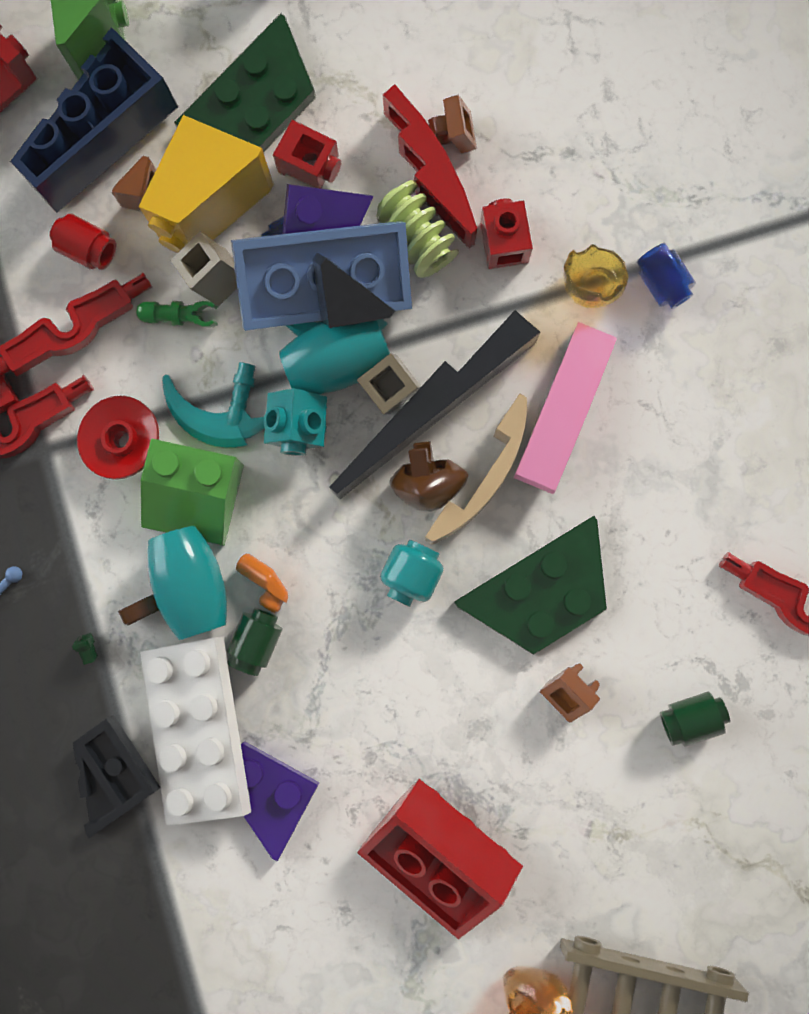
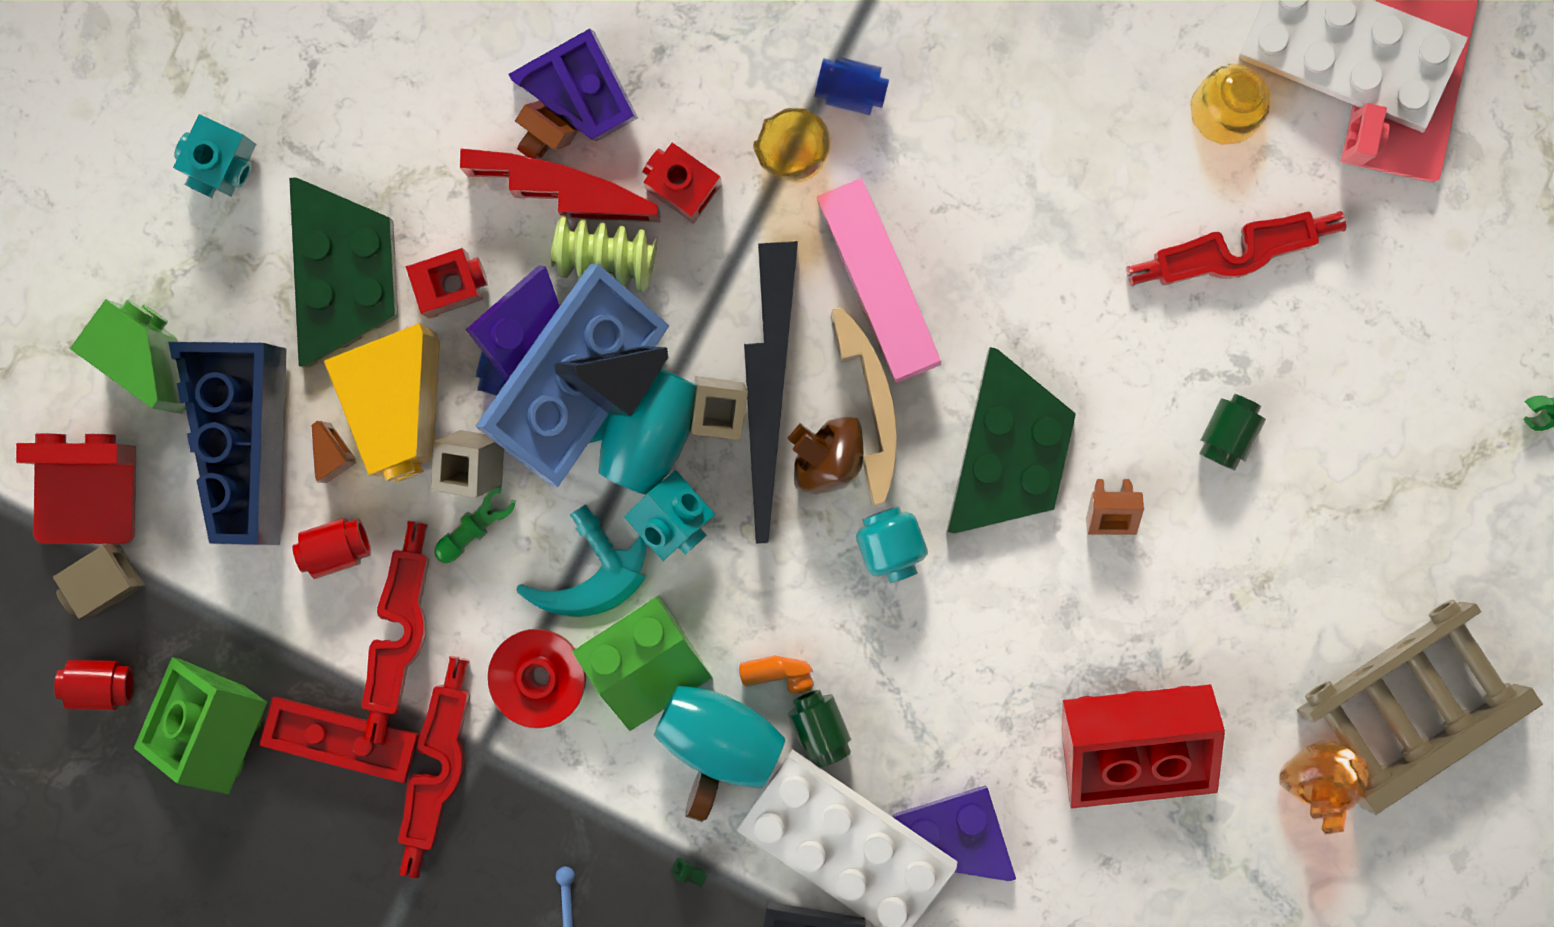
camera: 50 degrees left, 5 degrees up
(502, 121) = (579, 86): none -> dark purple wing

